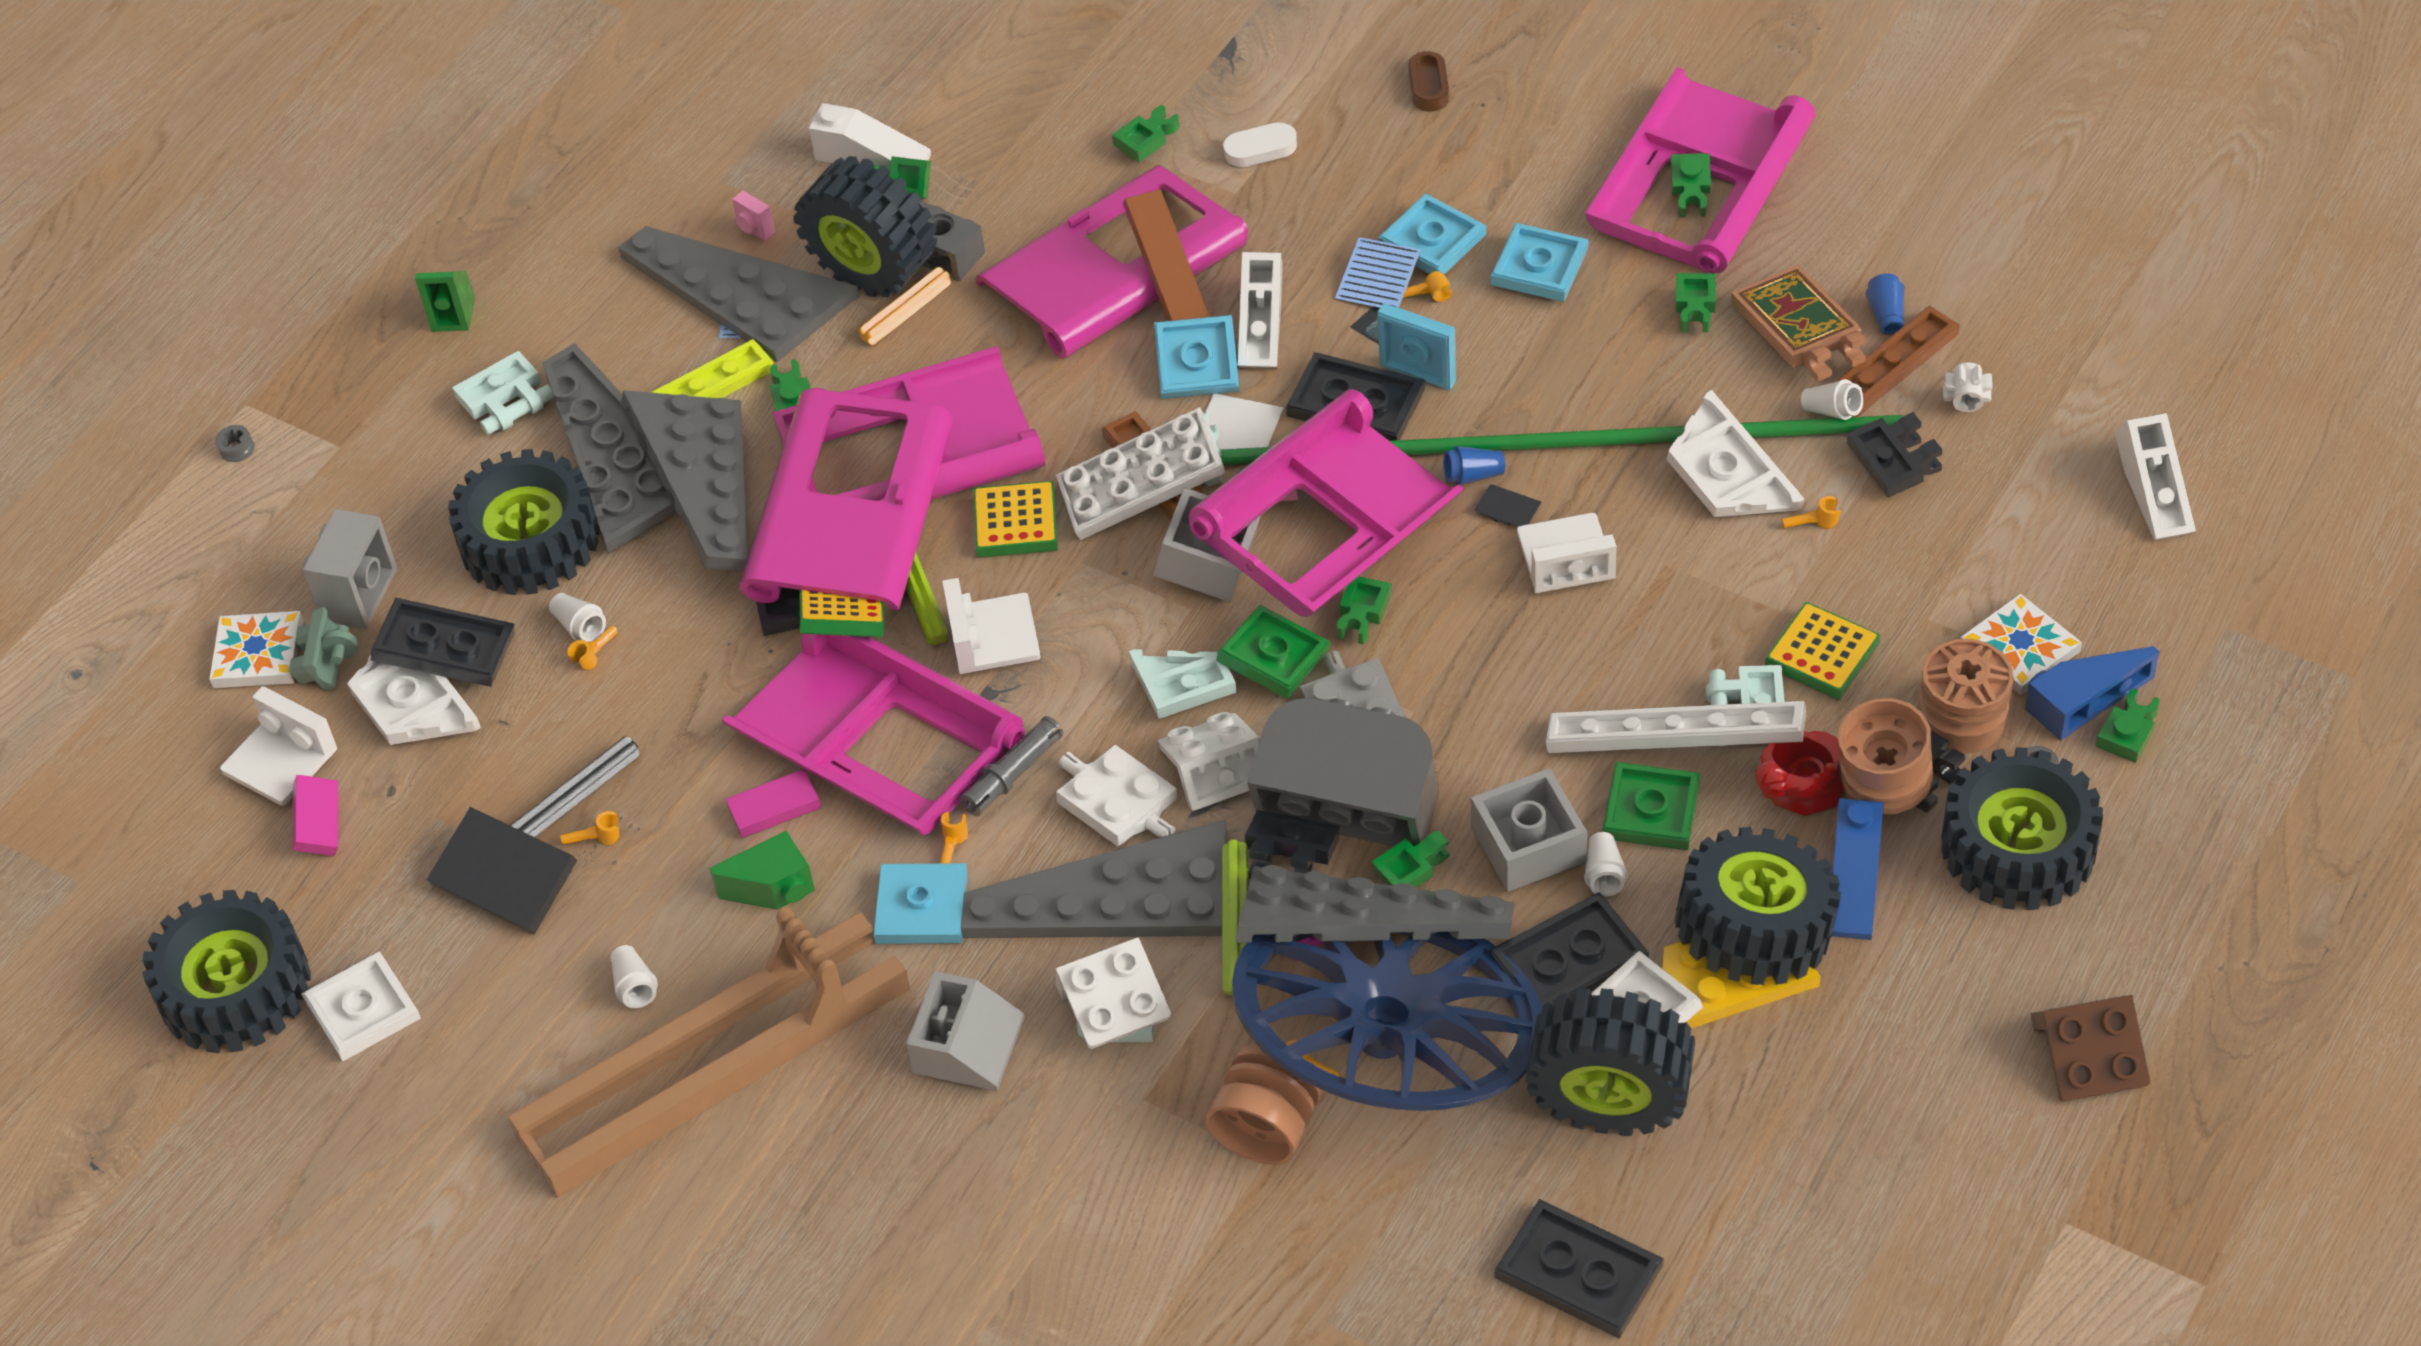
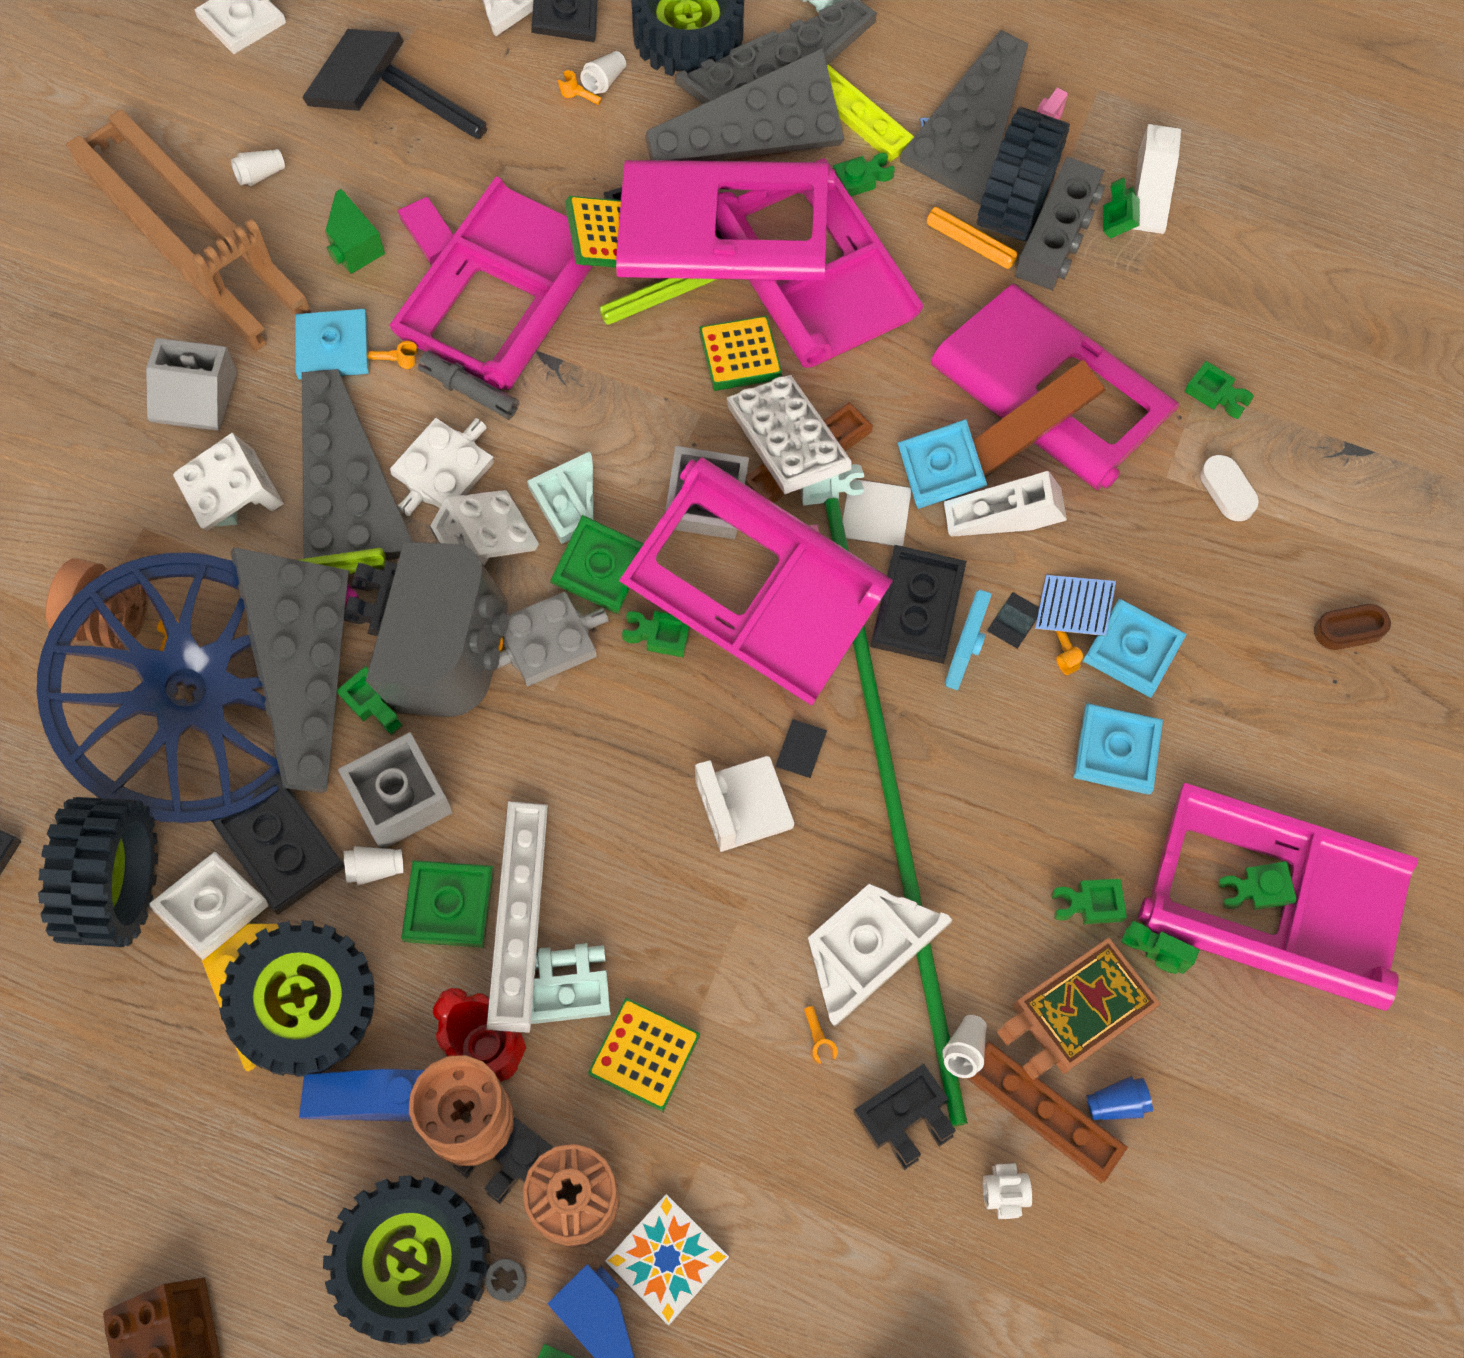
camera: 75 degrees right, 15 degrees up
(605, 830) = (398, 121): light orange hand -> none
(990, 630) = (608, 343): white bracket -> none
(1469, 465) = (841, 709): blue cone -> none
(1750, 251) = (1164, 949): none -> green plate

